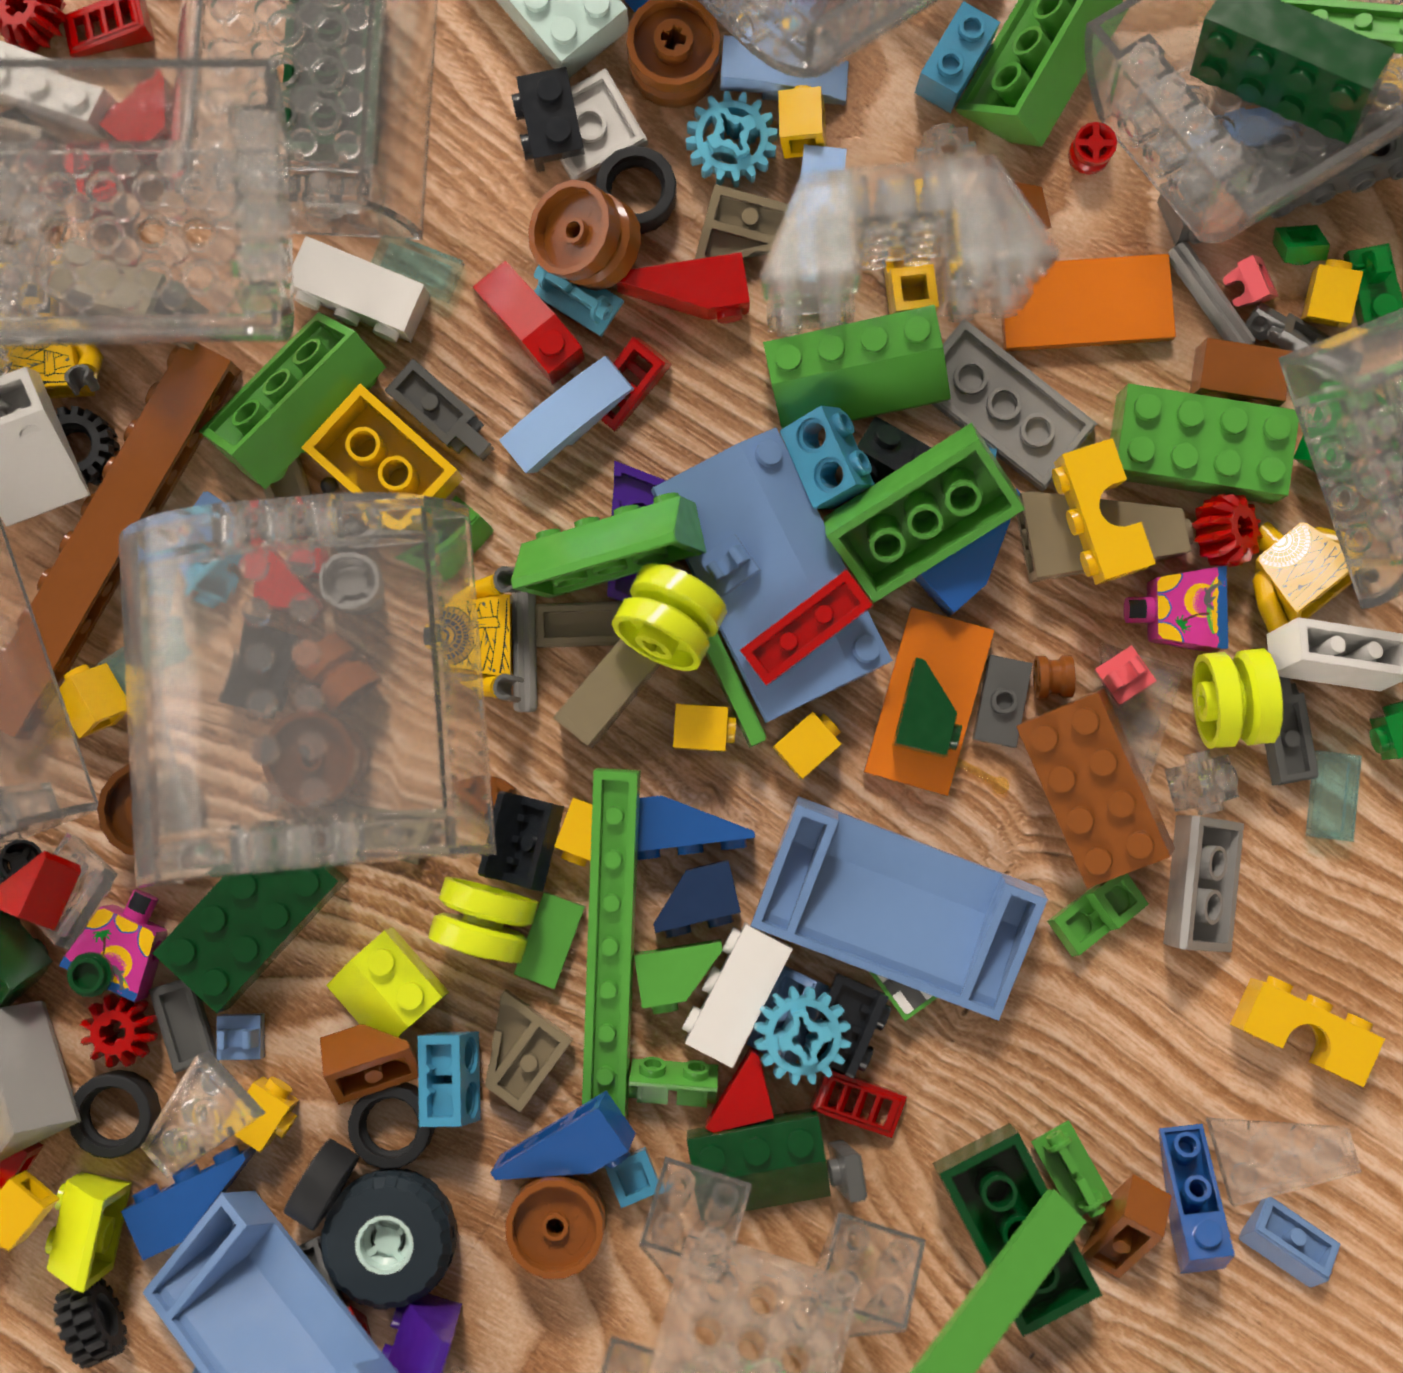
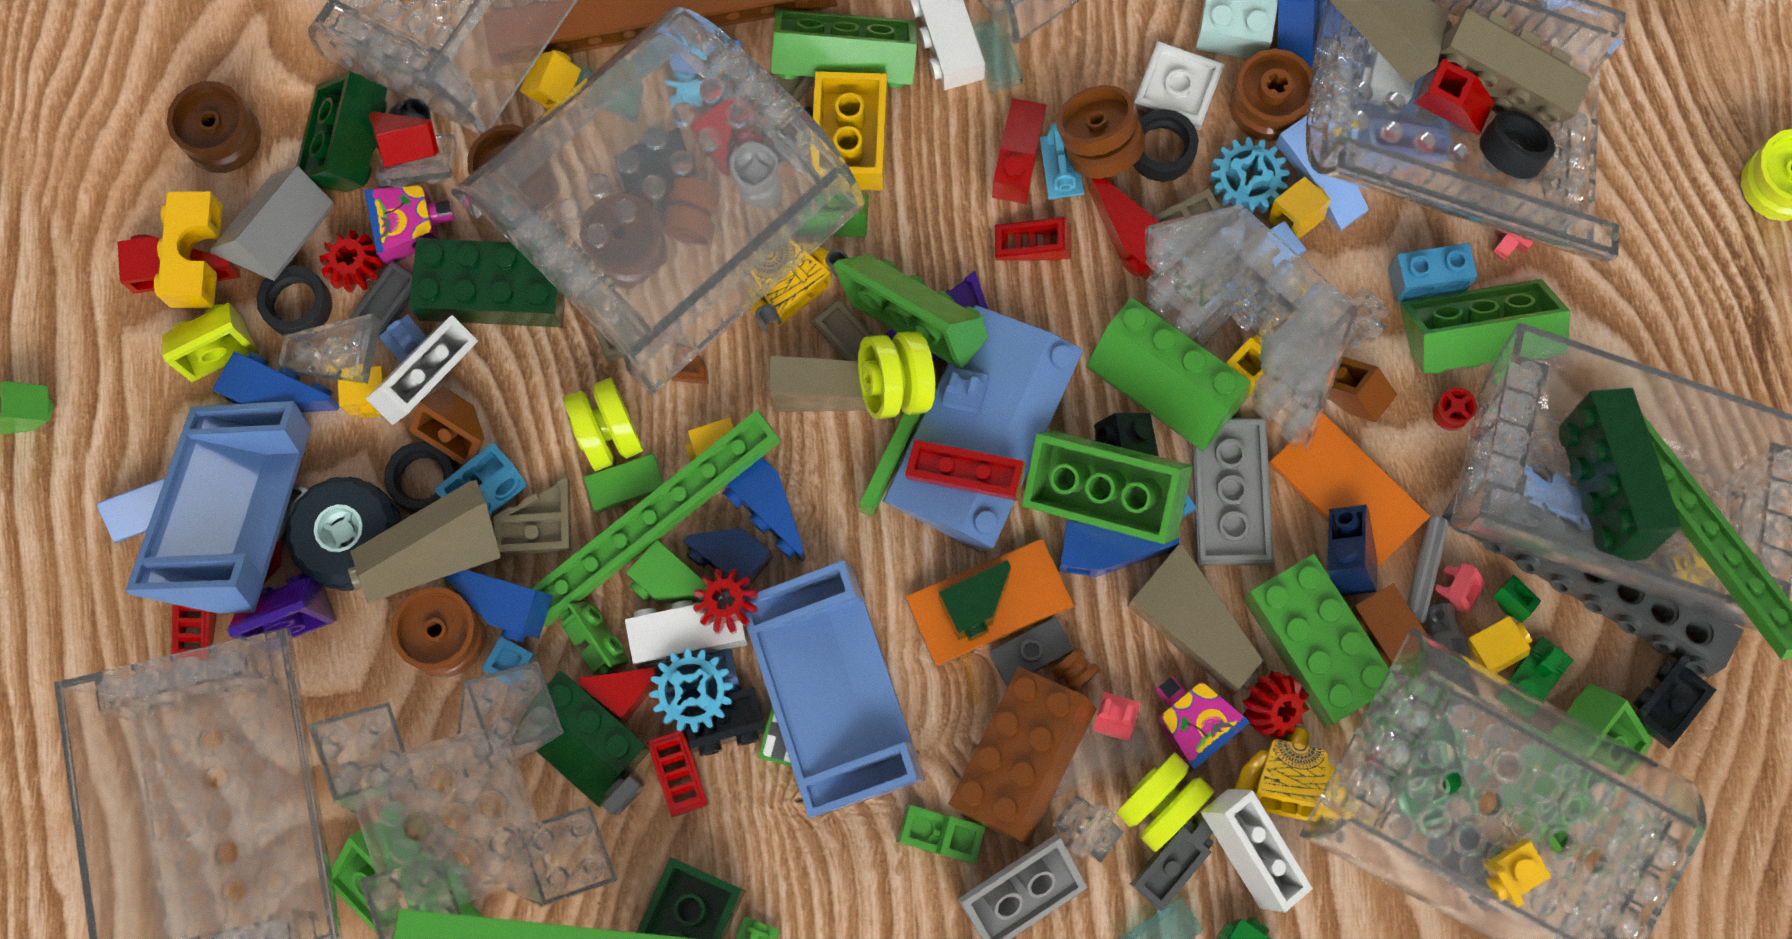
camera: 55 degrees right, 10 degrees down
(90, 974) = (373, 211): dark green plate -> none
(90, 1324) = (147, 389): black tyre -> none
(291, 1048) = (422, 370): none -> white brick
(321, 1184) = (347, 458): black tyre -> none
(387, 985) = (513, 402): neon yellow slope -> none
(438, 410) = (913, 140): dark grey hinge -> none
(472, 1178) = (427, 545): none -> dark tan slope
(524, 651) = (801, 316): light grey axle -> none
(524, 840) = (674, 409): black bracket -> none
(550, 117) = (1160, 55): black bracket -> none
(566, 415) = (977, 217): light blue slope -> none
(703, 728) = (845, 465): yellow brick -> none
(746, 956) = (713, 611): none -> red gear
(808, 744) = (892, 543): yellow brick -> none
(819, 463) = (1091, 398): dark azure brick -> none
(1107, 548) = (1226, 574): yellow arch -> none
(1147, 347) = (1352, 550): none -> dark blue slope

